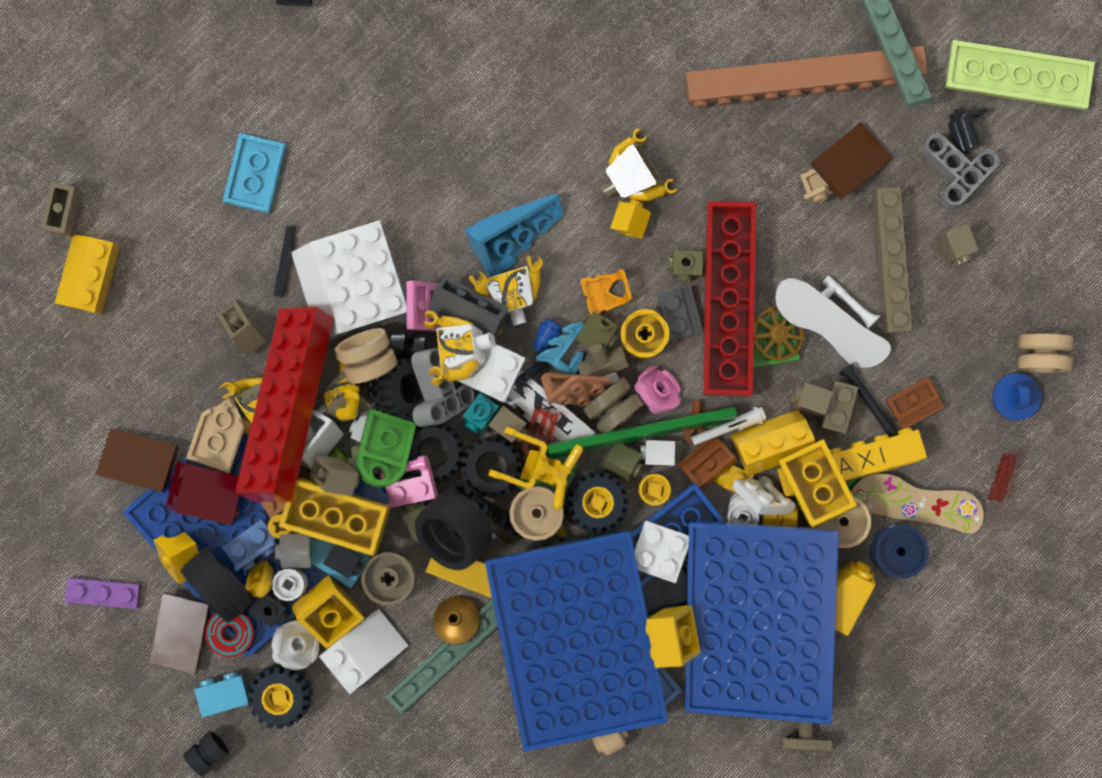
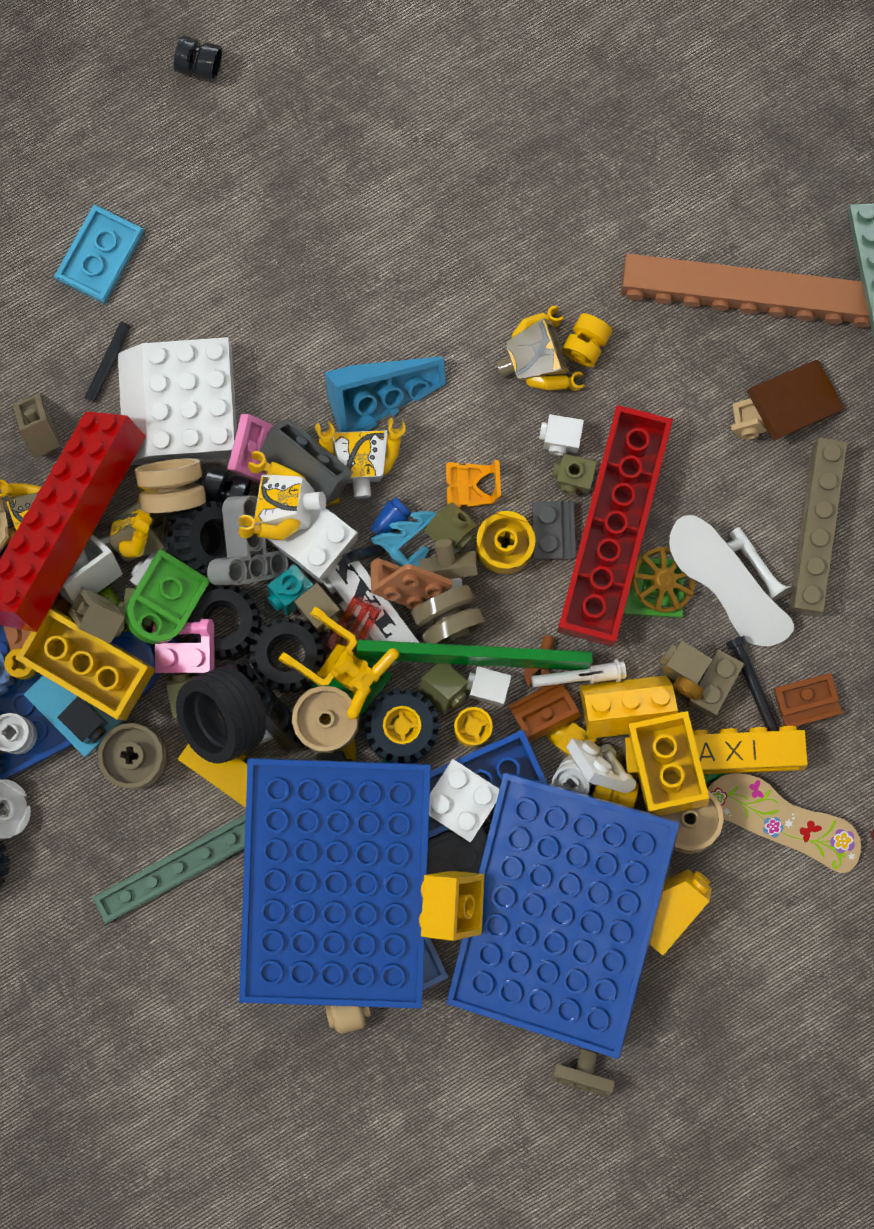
camera: 10 degrees right, 5 degrees down
(294, 551) = (27, 695): light grey brick -> none
(327, 612) = (49, 778): yellow brick -> none
(364, 651) = (80, 837): white slope -> none
(467, 622) = (209, 835): pearl gold dish -> none
(630, 219) = (521, 406): yellow brick -> none
(647, 388) = (494, 606): bright pink plate -> none
(668, 235) = (561, 434): none -> white brick
(671, 143) = (588, 338): none -> yellow wheel
(818, 418) = (688, 688): none -> pearl gold tile
(913, 549) = (766, 874): dark blue wheel -> none

